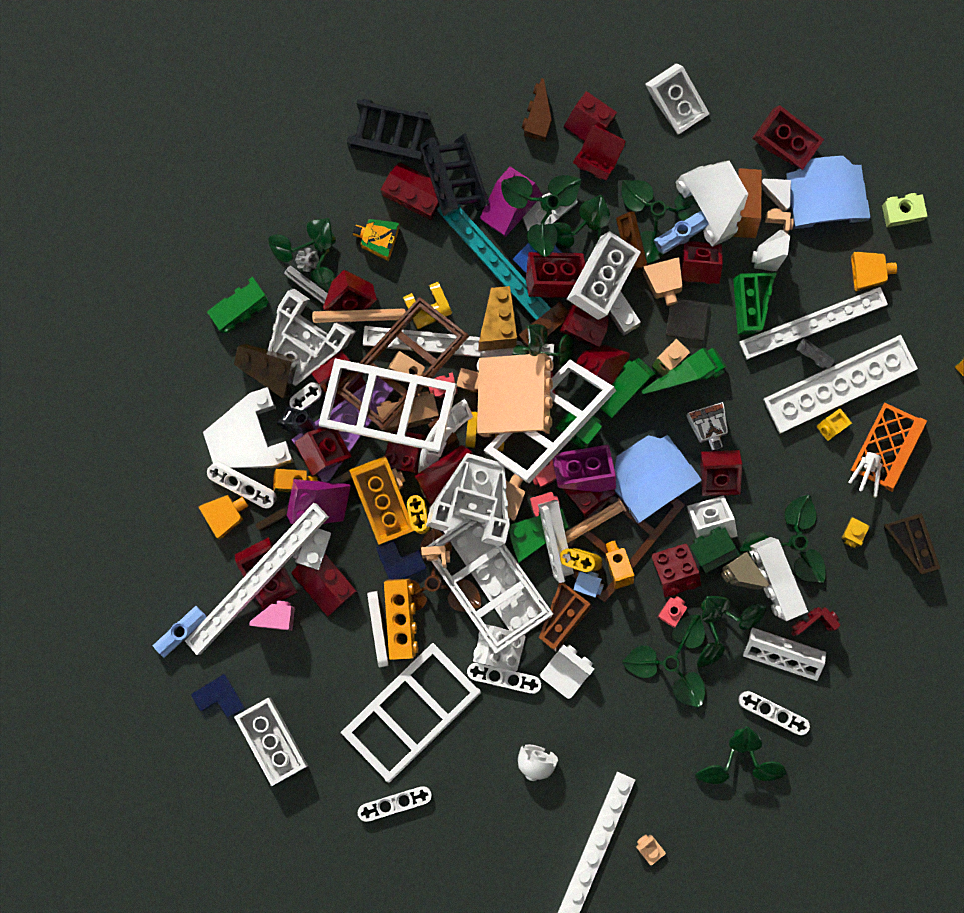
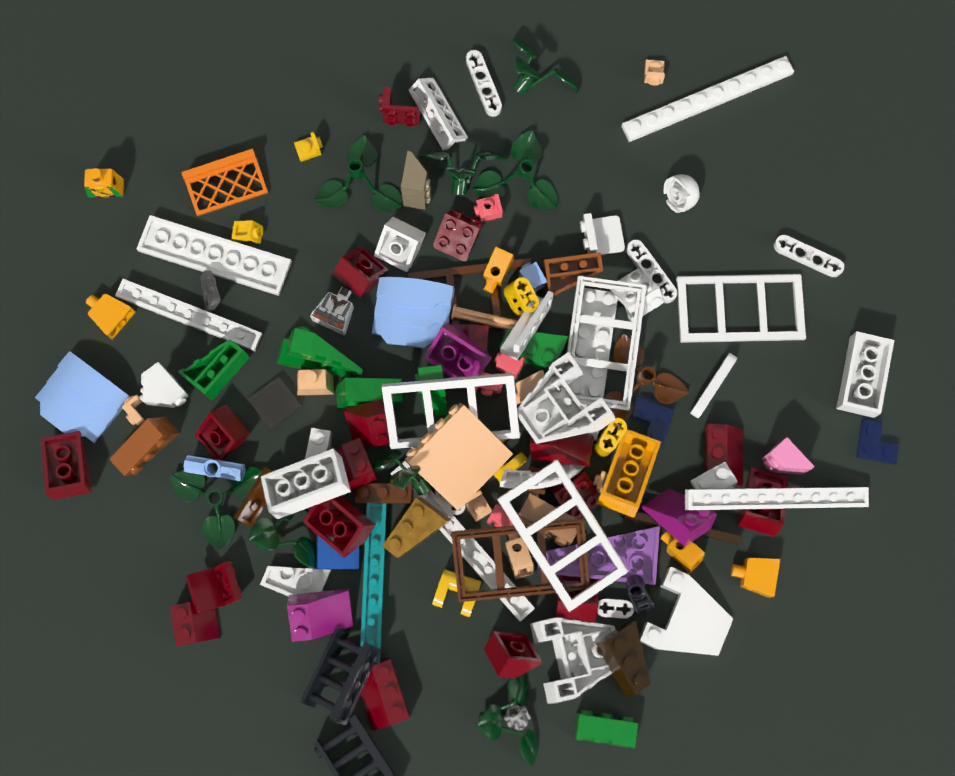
camera: 140 degrees left, 5 degrees down
(170, 640) = (878, 516): light blue piece -> none
(240, 488) = (726, 584): white beam -> none
(306, 284) = (534, 697): light grey axle -> none
(322, 449) = (640, 551): dark red slope -> none
(357, 315) = (518, 633): light nougat axle -> none
(378, 237) = (445, 683): torso -> none
(397, 649) = (711, 356): light orange brick -> none
(434, 552) = (627, 396): light nougat bracket -> none
(539, 119) = (232, 660): reddish brown slope -> none
(563, 193) = (309, 609): dark green plant -> none
(664, 279) = (262, 444): light nougat torso -> none
(677, 98) = (113, 576): white slope -> none
(714, 549) = (418, 219): dark green piece -> none
(718, 196) = (159, 466): white wedge -> none
(778, 192) = (114, 430): white slope -> none
(782, 585) = (391, 161): white brick -> none
(870, 463) = (249, 179): white plant -> none
(894, 215) = (32, 326): yellowish green brick -> none
(915, 542) = (274, 101): dark brown wedge -> none

